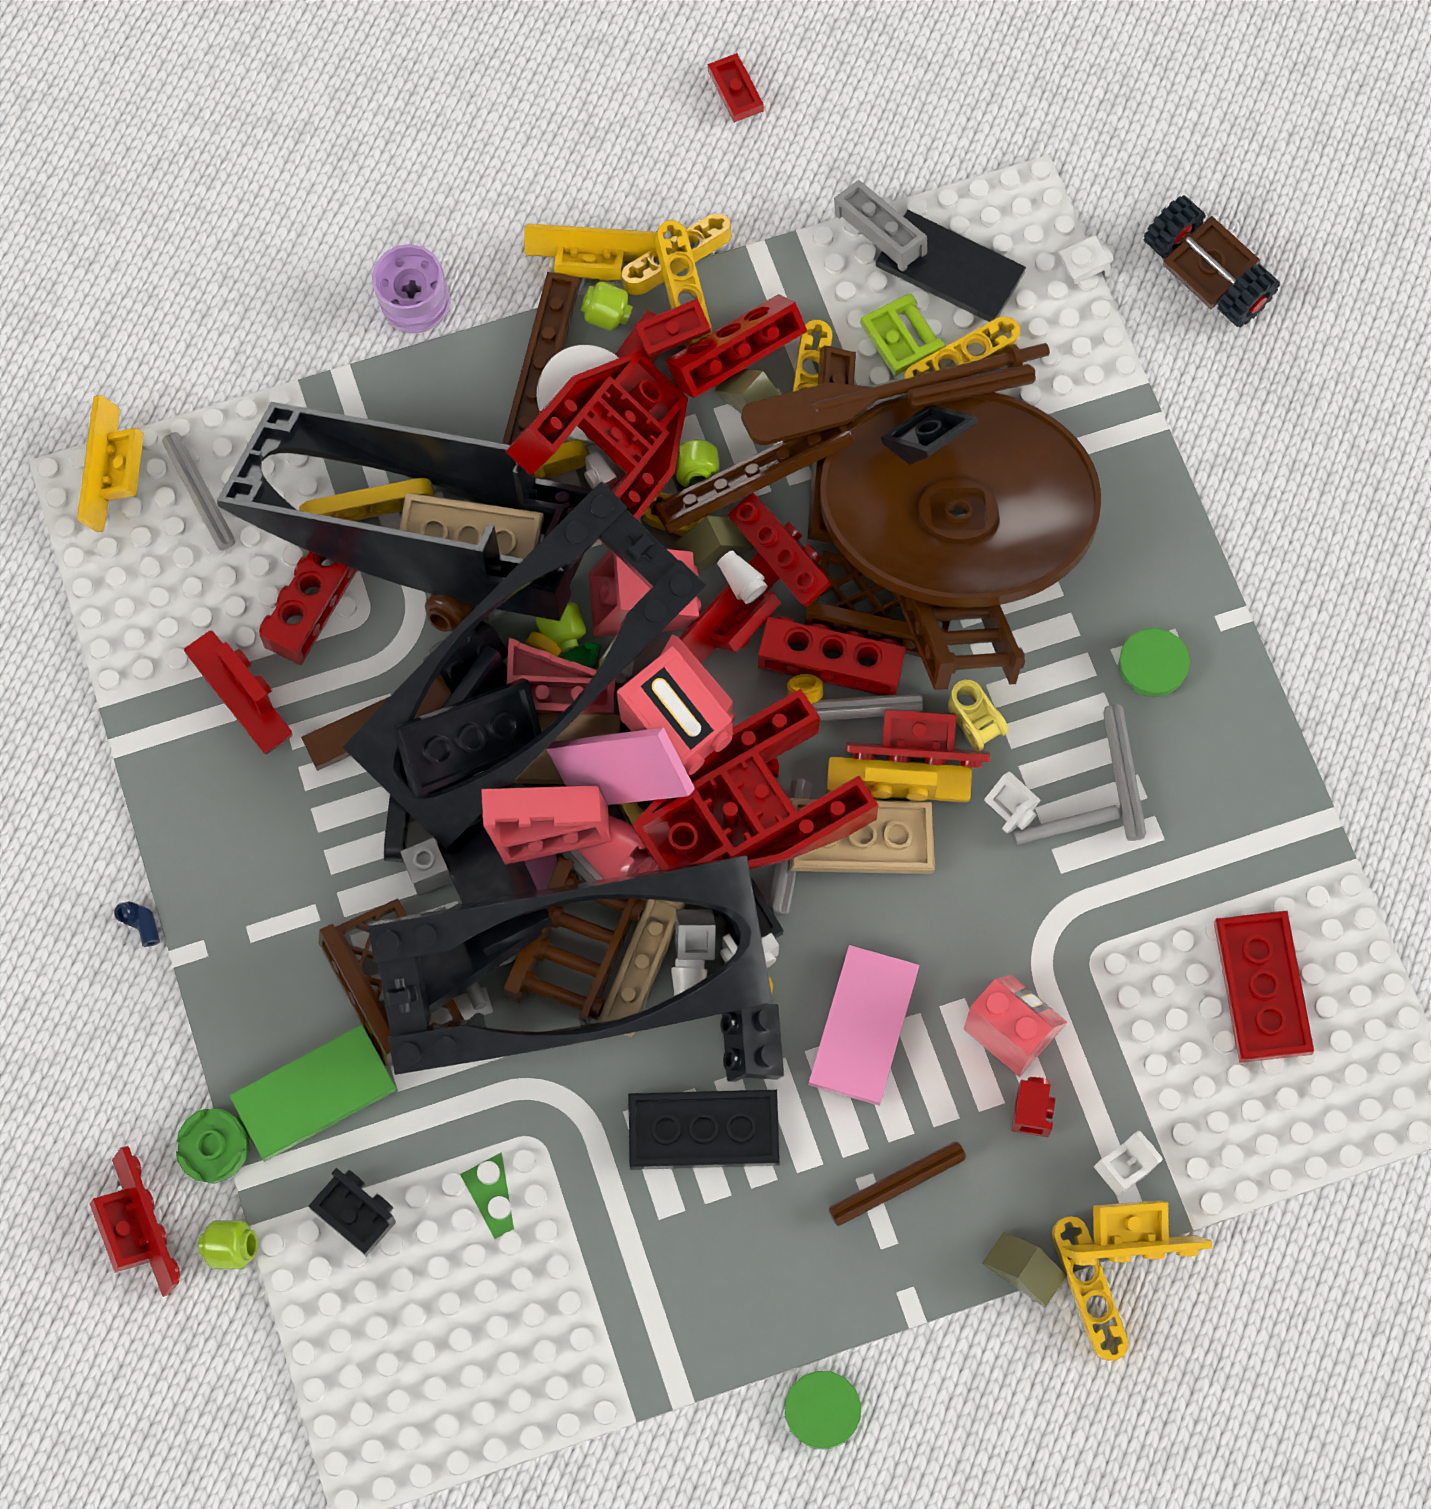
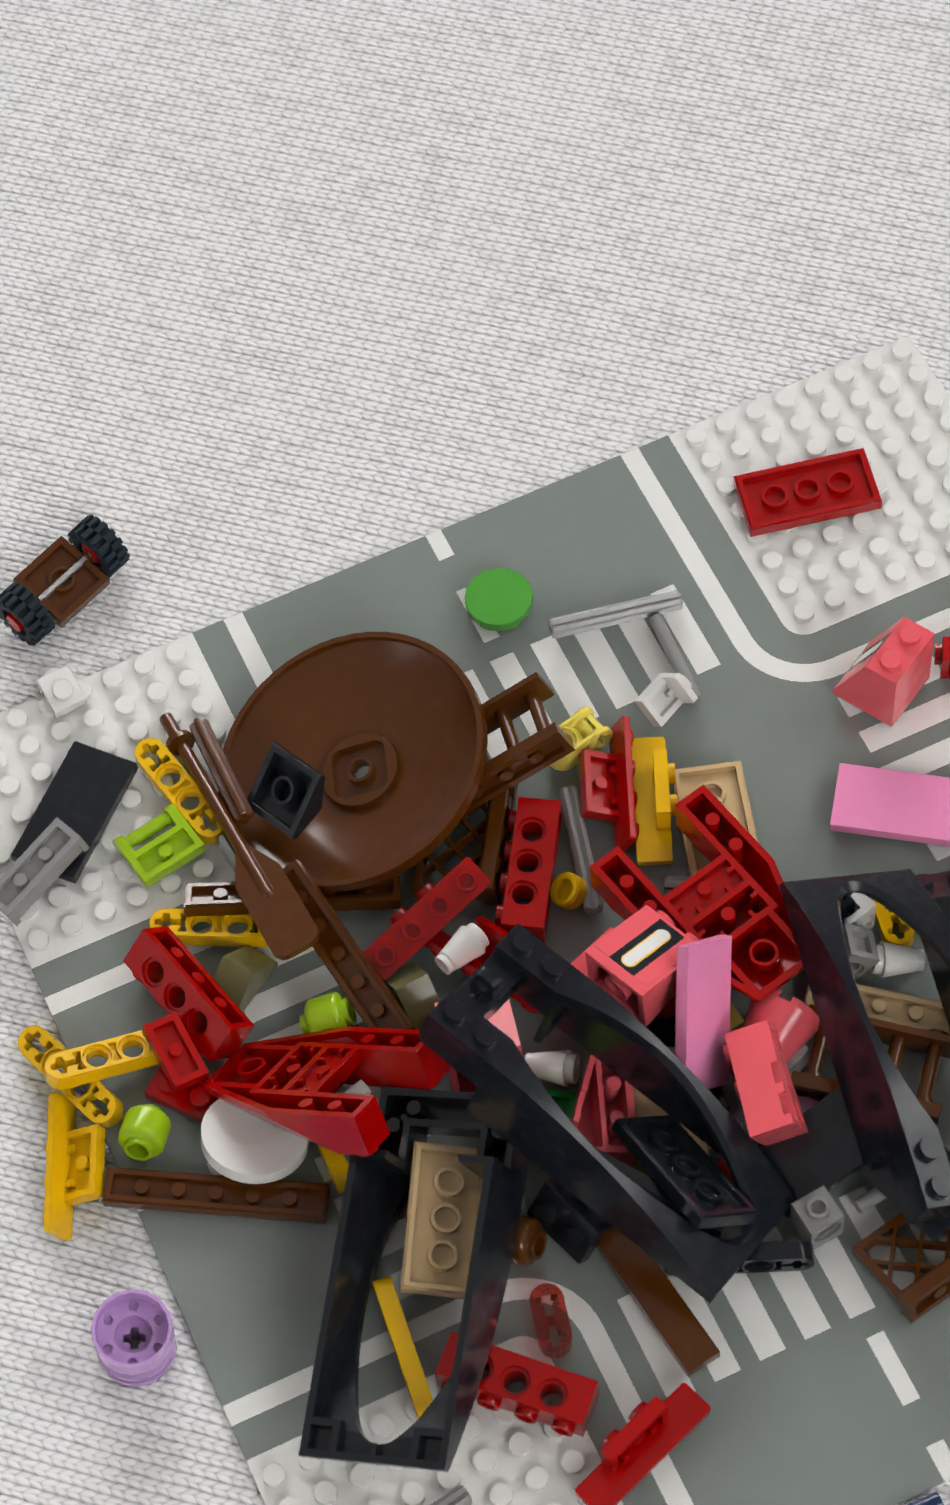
camera: 90 degrees left, 10 degrees down
(373, 629) = (542, 1322): none -> clear red beam

